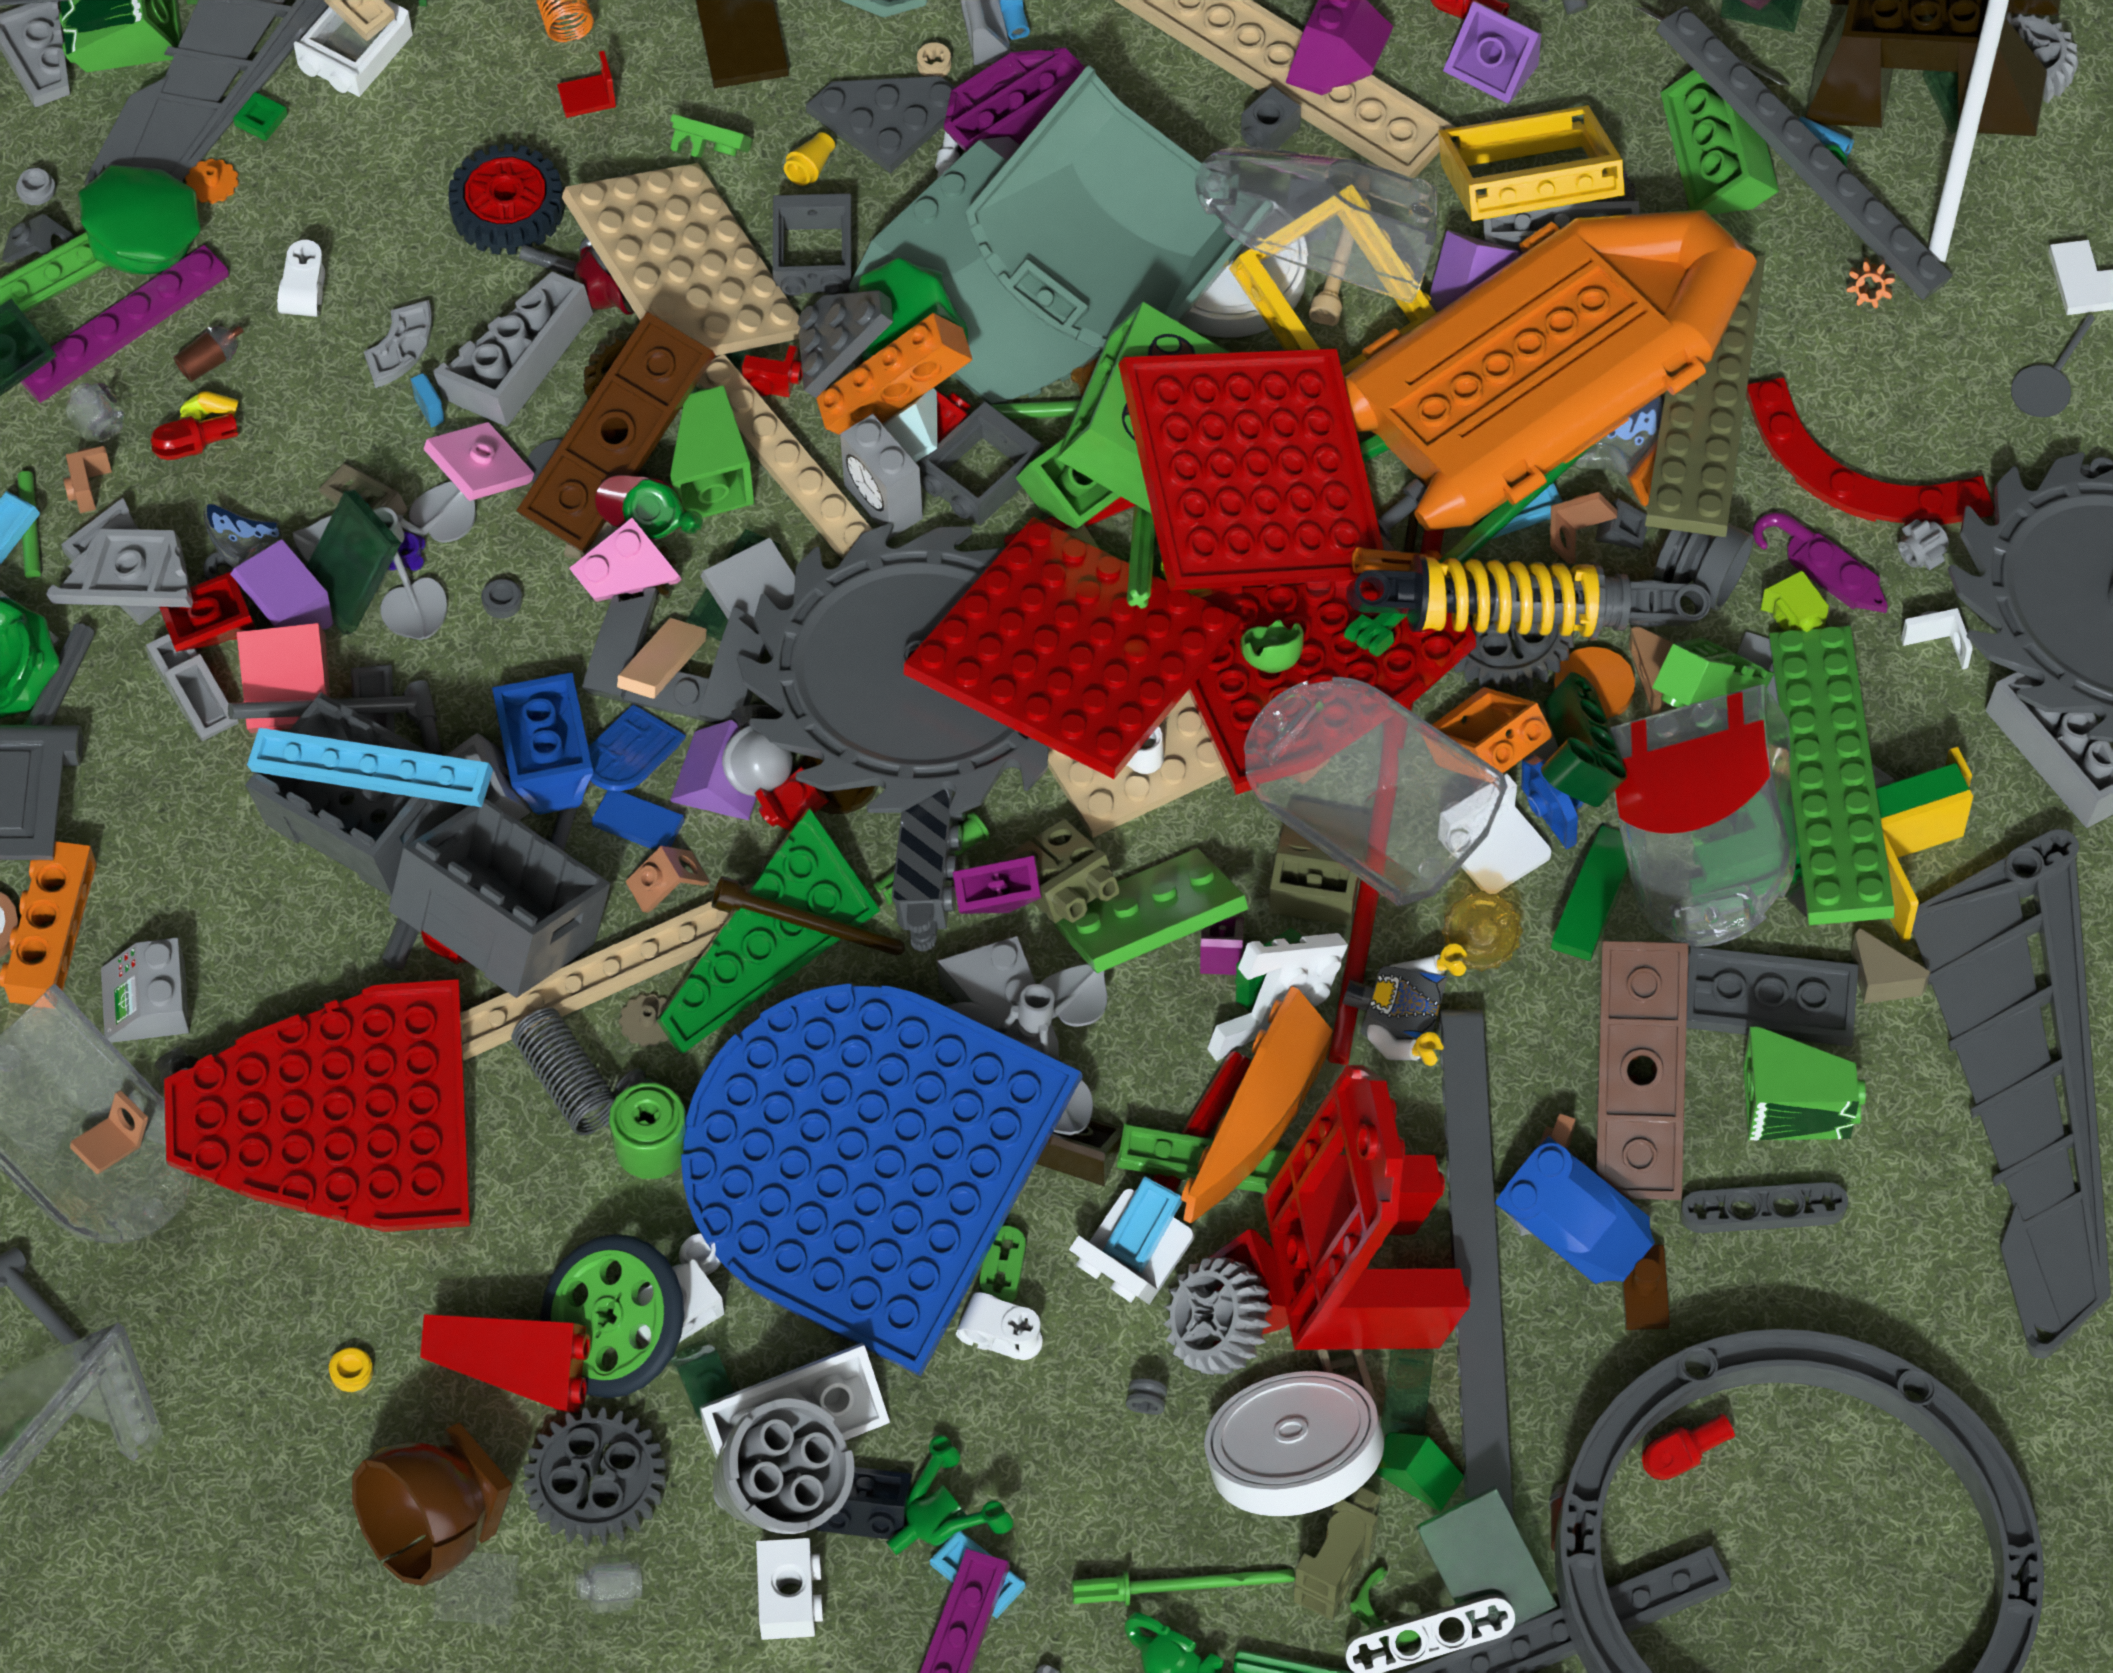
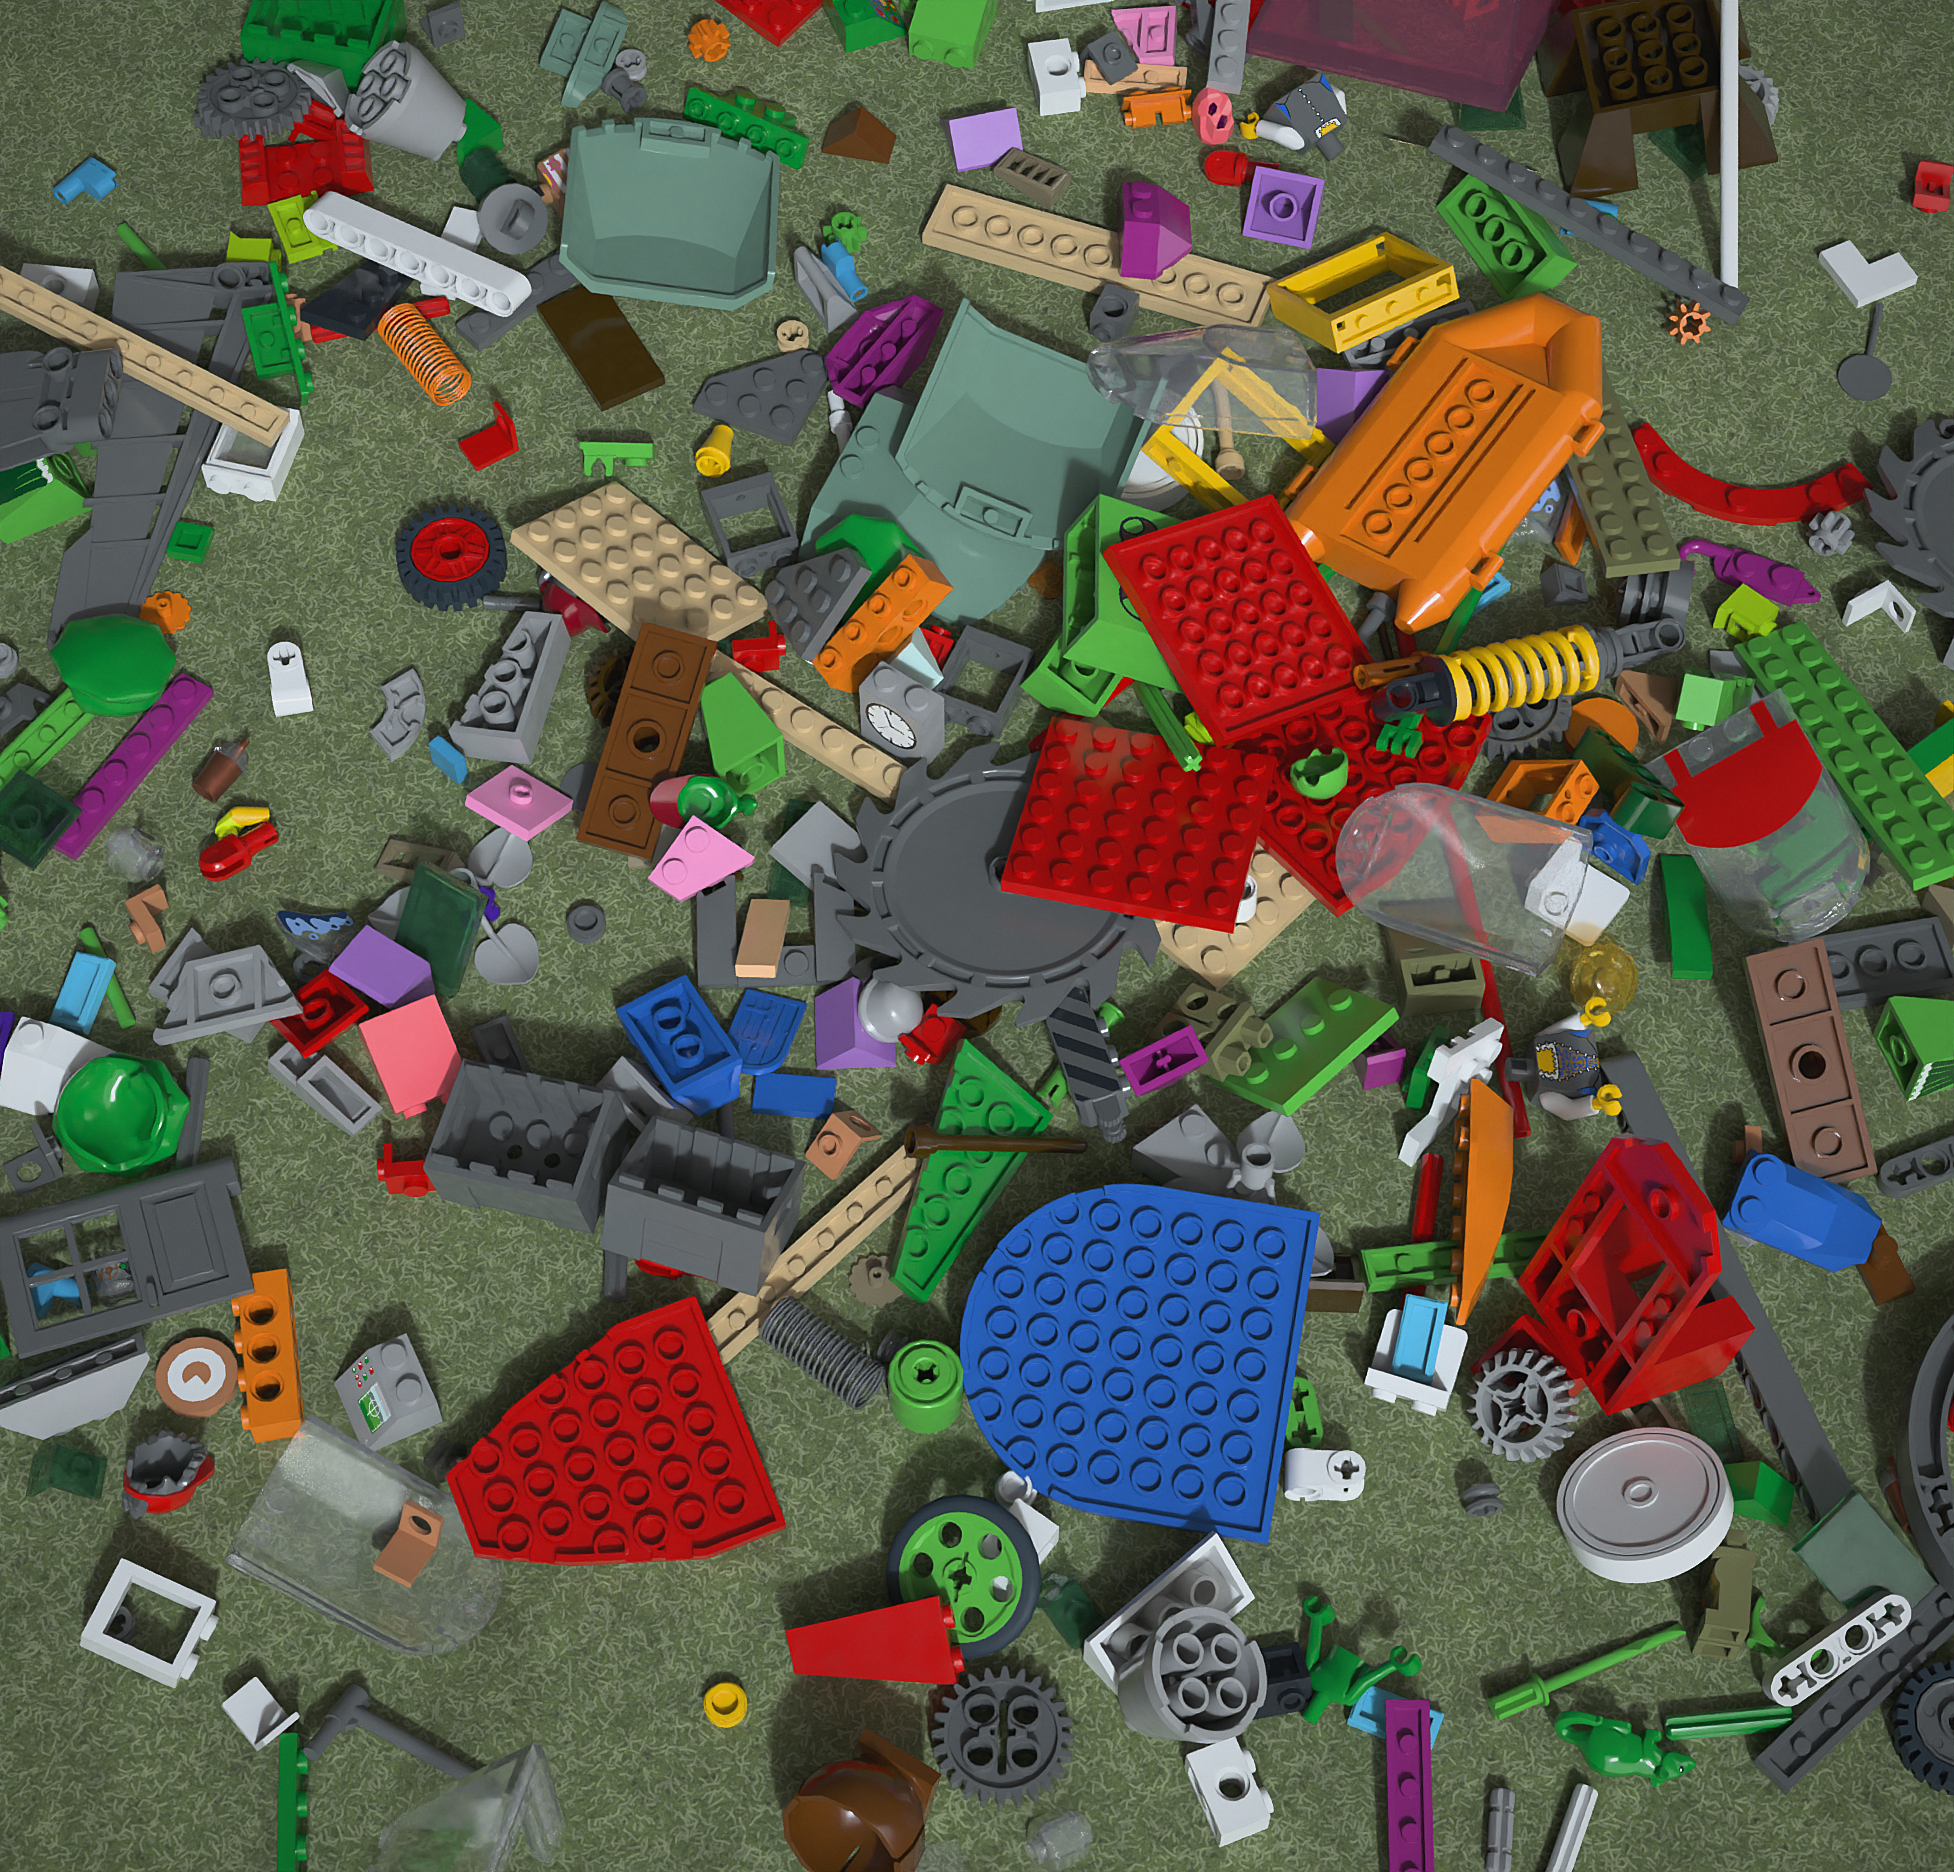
camera: 20 degrees left, 0 degrees up
(230, 789) = (403, 1176): none -> red bracket
(370, 767) = (544, 1116): medium azure plate -> none
(415, 702) = (541, 1042): dark grey bar -> none
(1038, 409) = (1021, 617): bright green bar -> none
(1575, 515) = (1527, 585): nougat bracket -> none

